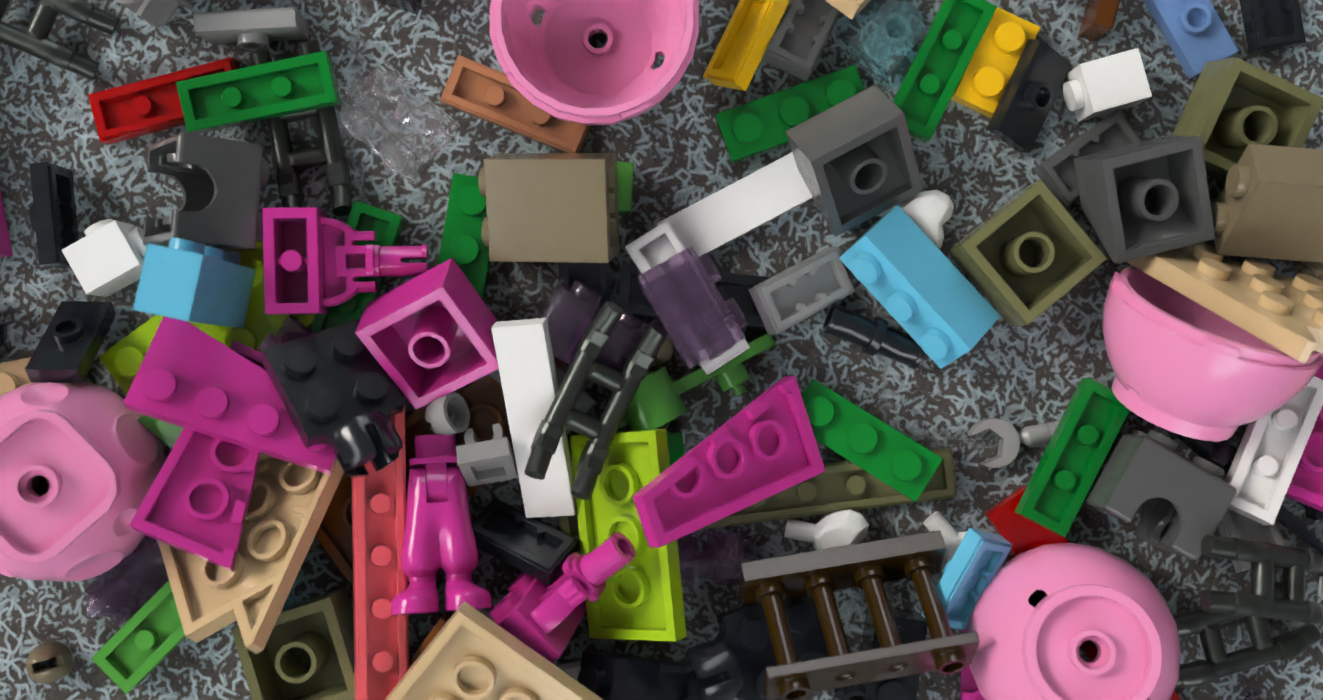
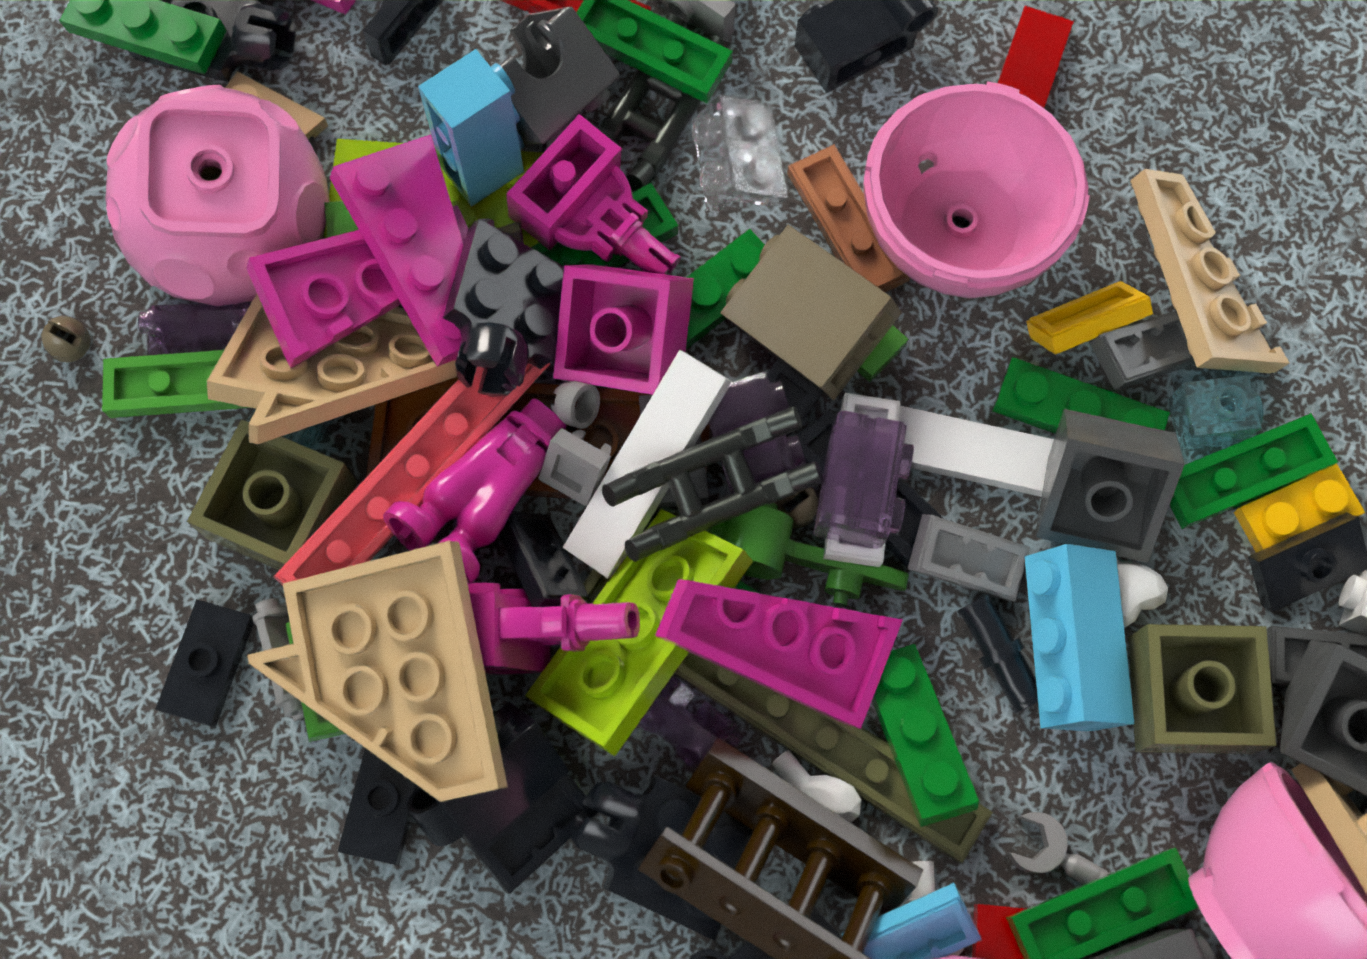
camera: 45 degrees right, 15 degrees down
(70, 342) = (329, 105): black plate -> none
(107, 257) = (409, 64): white brick -> none

